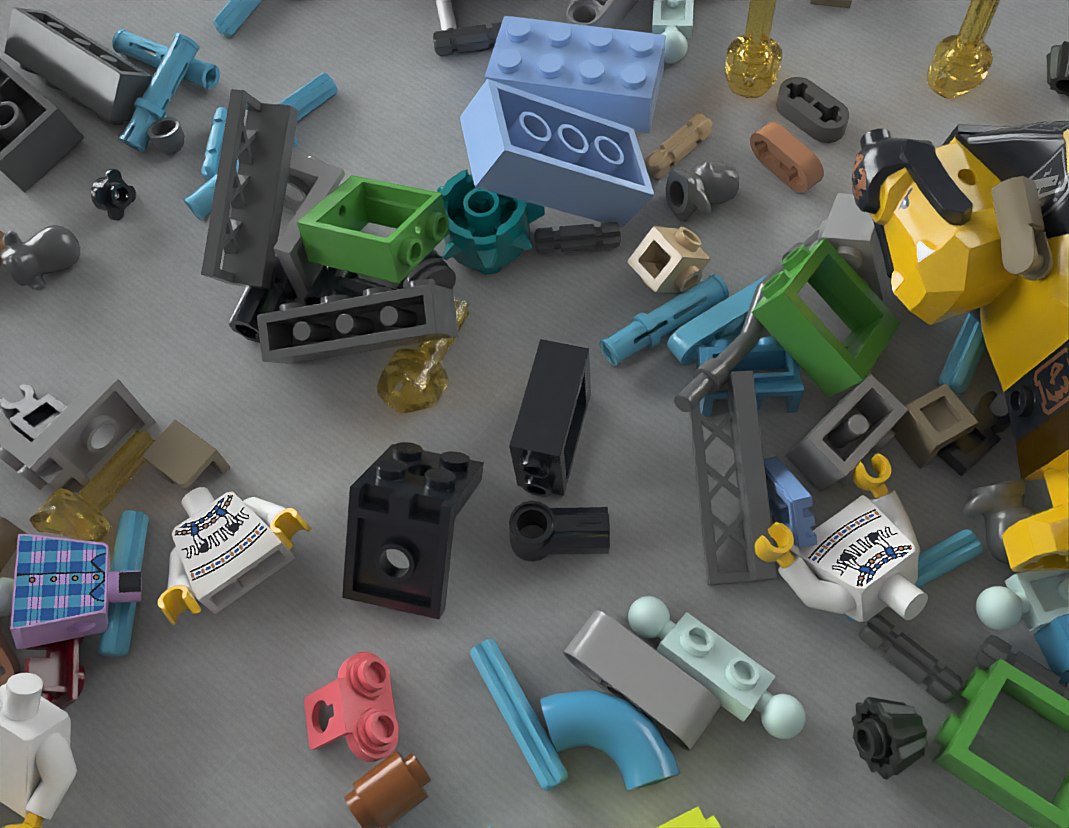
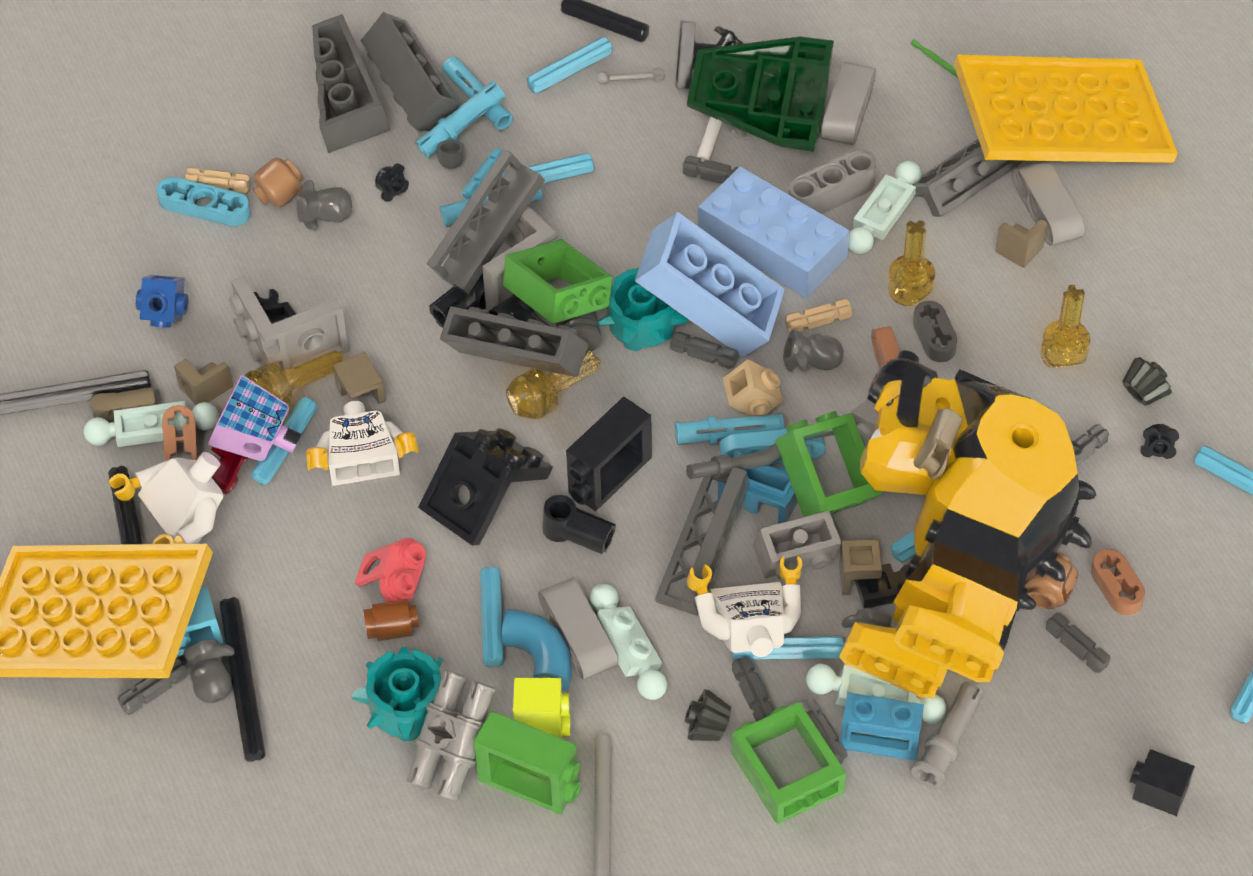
camera: 20 degrees right, 10 degrees down
(790, 502) = (725, 564): medium blue tile -> none

